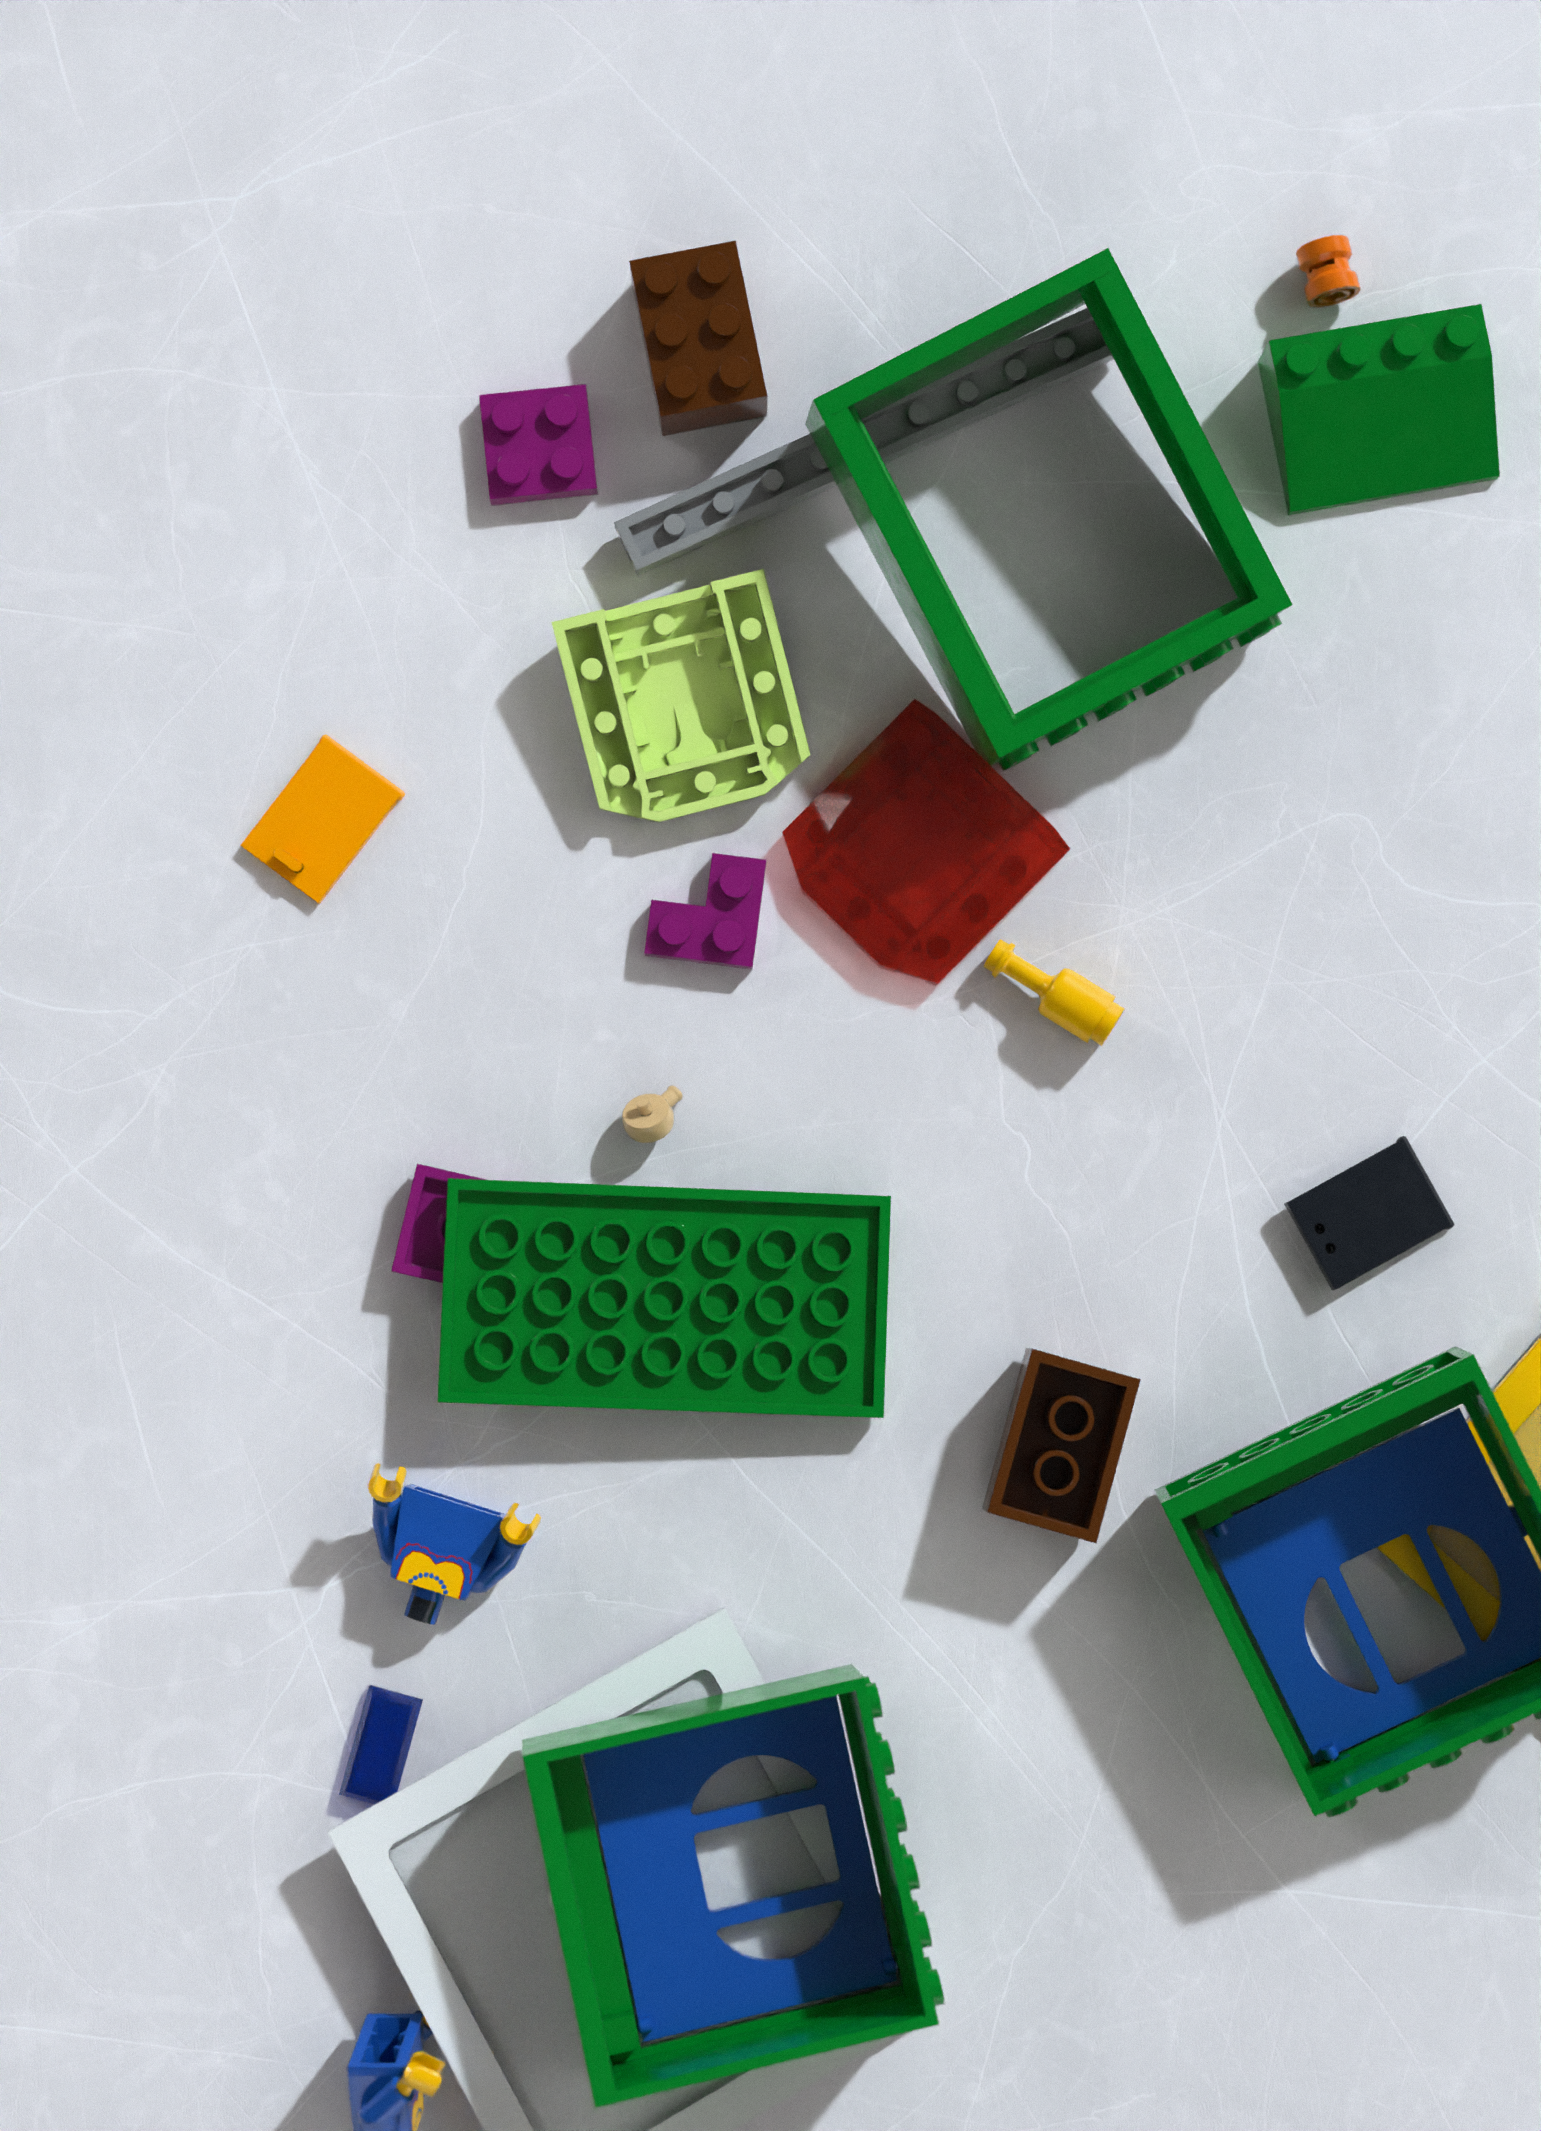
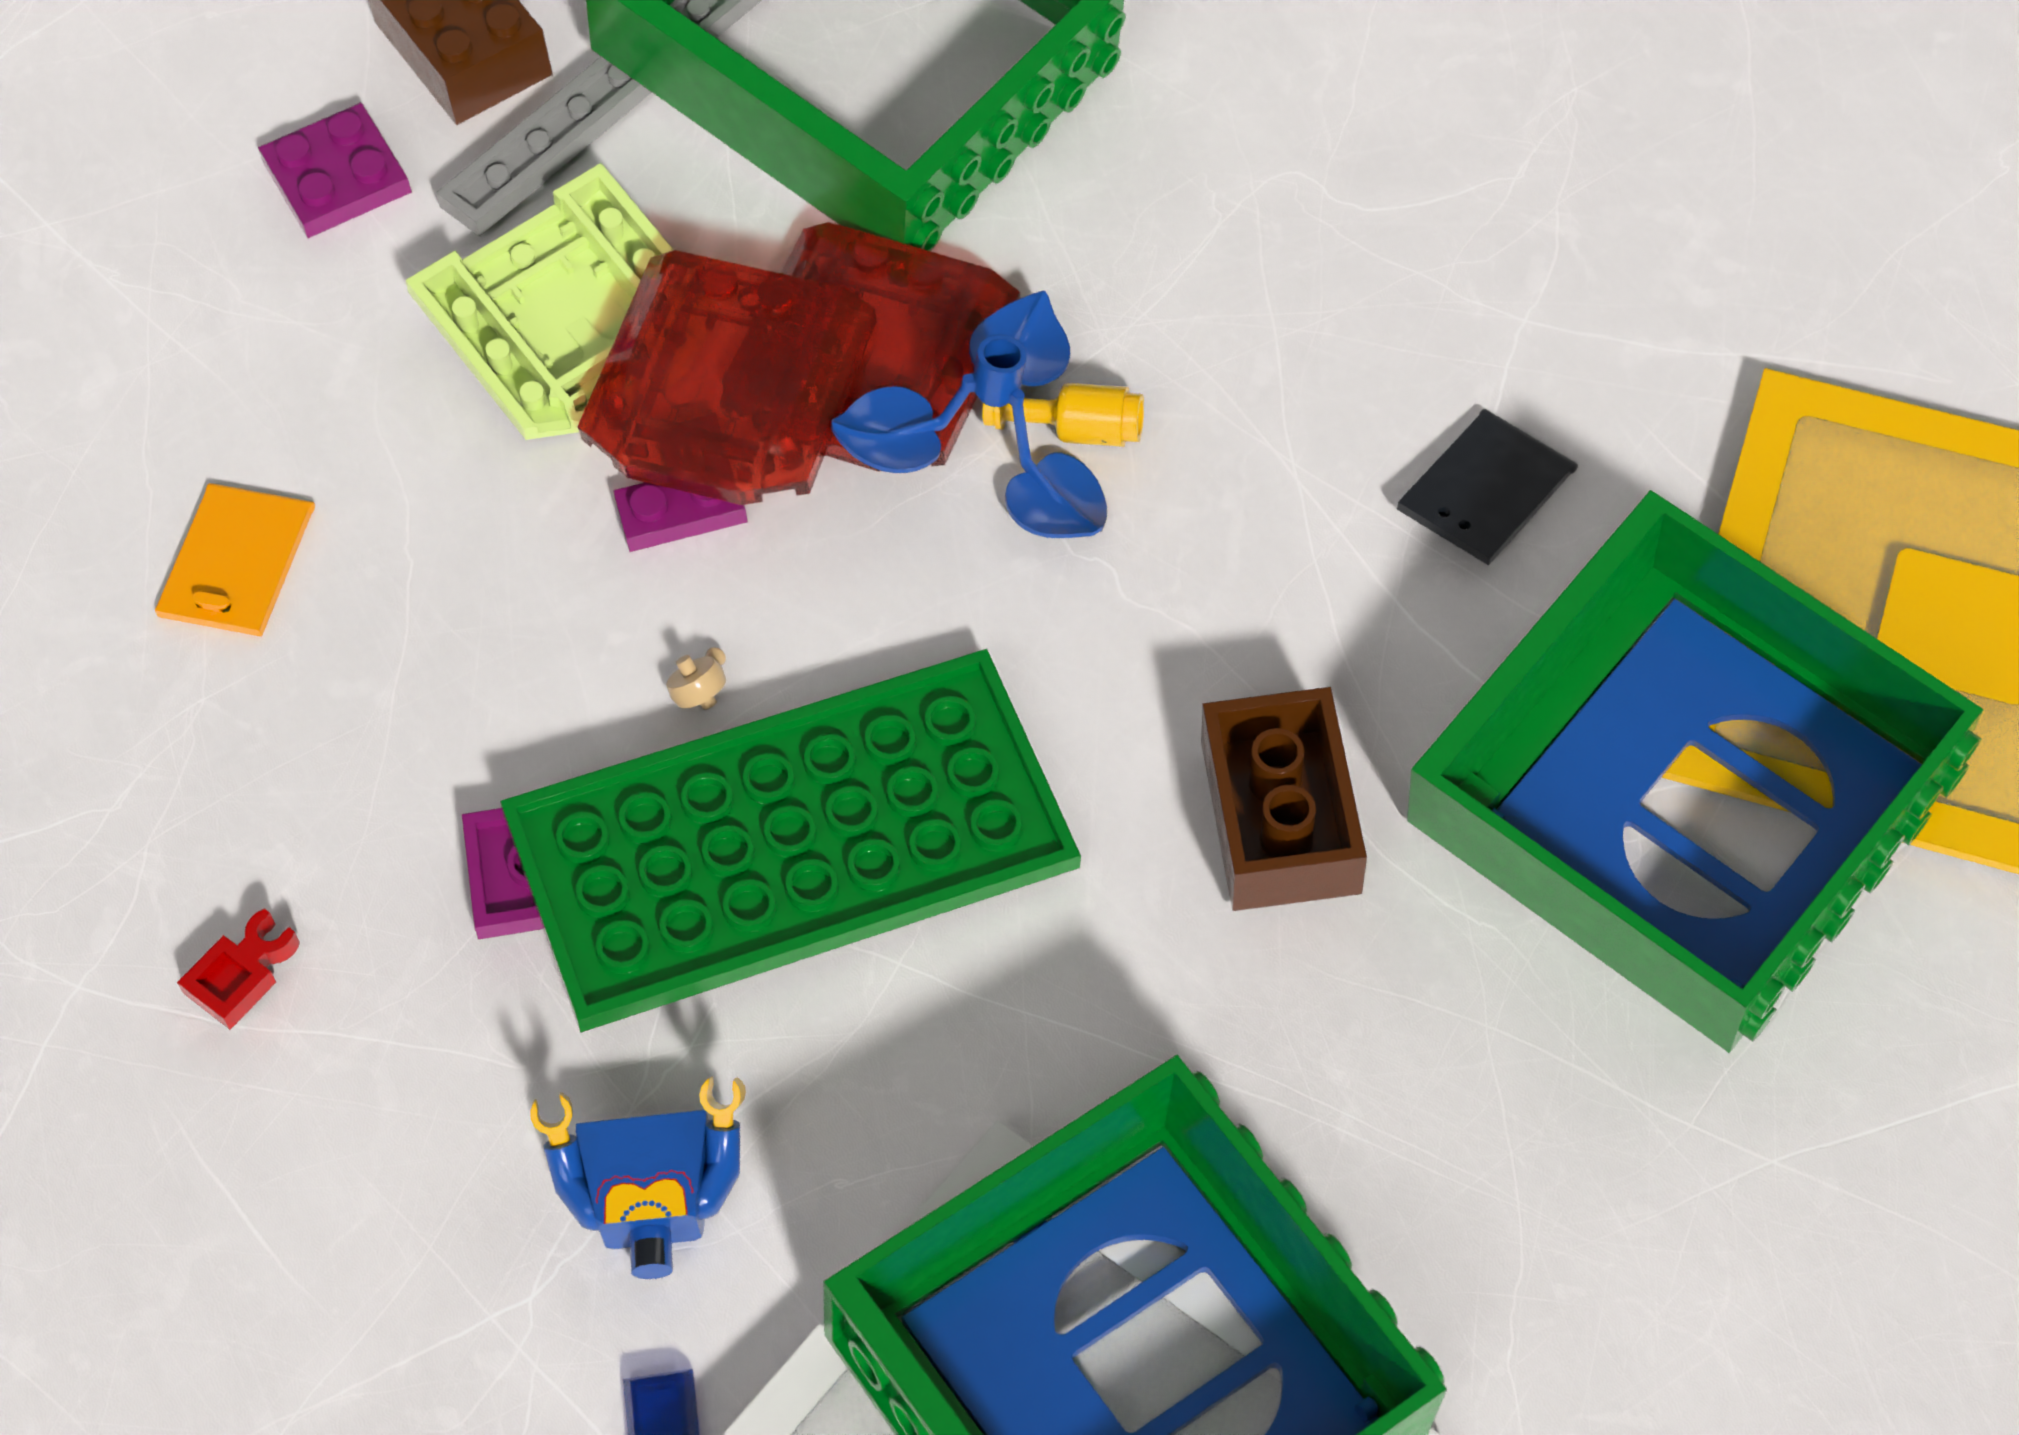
camera: 15 degrees left, 25 degrees down
(193, 1224) = (234, 976): none -> red plate
(781, 845) = (726, 378): none -> clear red wedge
(1049, 920) = (1009, 349): none -> blue plant

